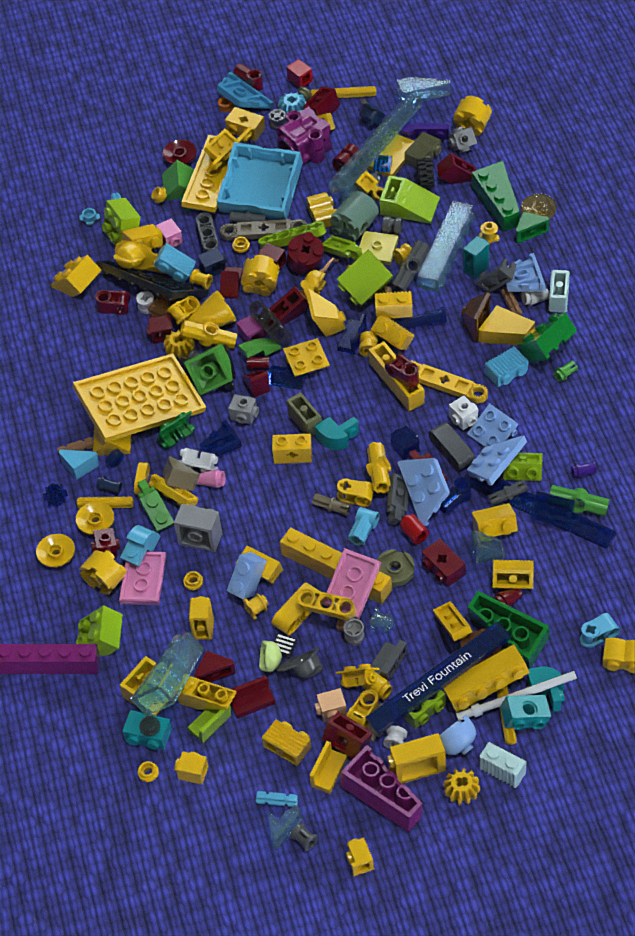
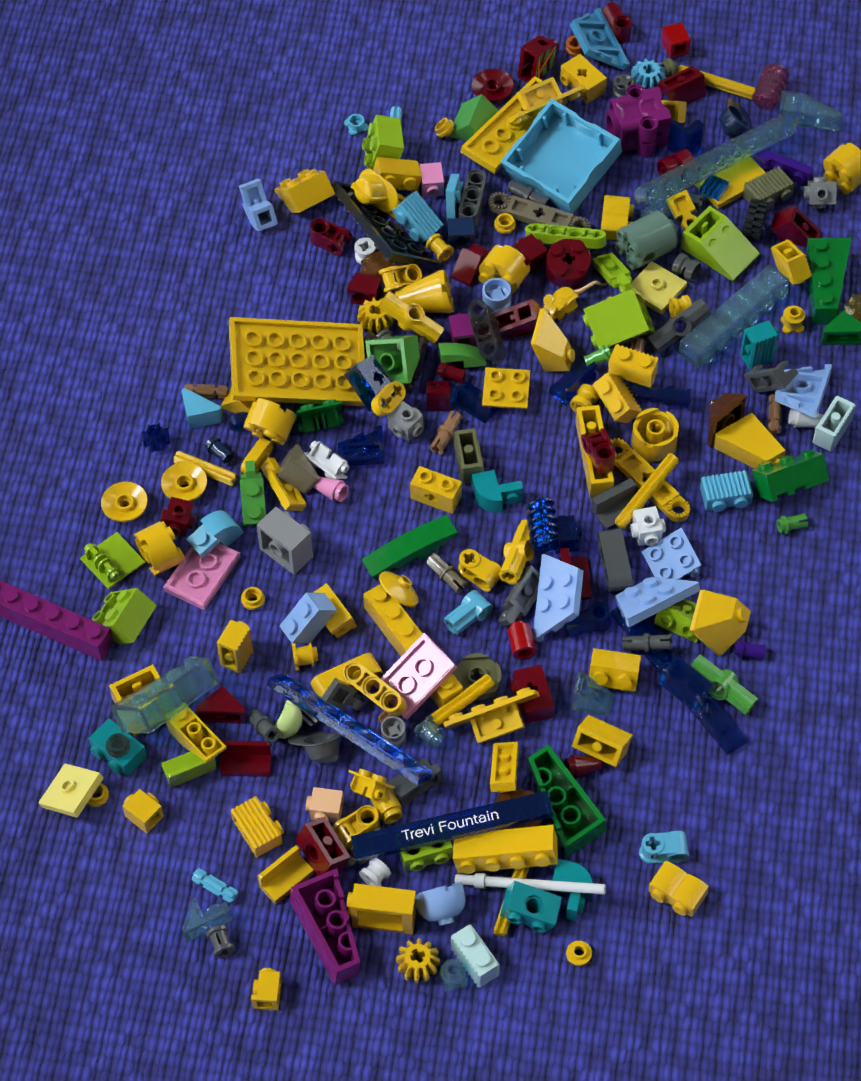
camera: 20 degrees right, 5 degrees up
(45, 302) = (257, 208): none -> light blue brick
(67, 597) = (111, 560): none -> lime hinge
(127, 776) = (71, 790): none -> light yellow plate
(140, 447) = (269, 420): none -> yellow brick
(194, 239) = (453, 195): none -> medium azure wing
(203, 116) = (537, 58): none -> dark red torso
(203, 391) = (367, 380): none -> brick
(223, 396) = (385, 395): none -> yellow beam
(253, 667) = (263, 725): none -> dark grey pin
(264, 292) = (497, 294): none -> light blue wheel
(276, 406) = (446, 432): none -> medium nougat pin
(294, 495) = (410, 545): none -> green slope
(302, 620) = (342, 694): none -> dark grey plate
(303, 527) = (399, 588): none -> yellow dish
(321, 641) = (350, 729): none -> clear blue tile
(343, 136) = (685, 138): none -> clear blue panel
(364, 308) = (599, 356): none -> bright green pin
(385, 81) = (770, 86): none -> clear pink piece
(388, 440) = (542, 525): none -> clear blue piece
(394, 587) = (462, 699): none -> yellow axle
(426, 591) = (496, 719): none -> yellow bracket
(431, 407) = (611, 502): none -> dark grey panel
(434, 347) = (654, 434): none -> yellow brick
(450, 387) = (647, 490): none -> yellow axle
(468, 192) = (791, 262): none -> yellow brick
(493, 785) = (456, 980): none -> clear light blue brick
(553, 456) = (719, 620): none -> yellow slope
(577, 736) = (576, 959): none -> yellow plate

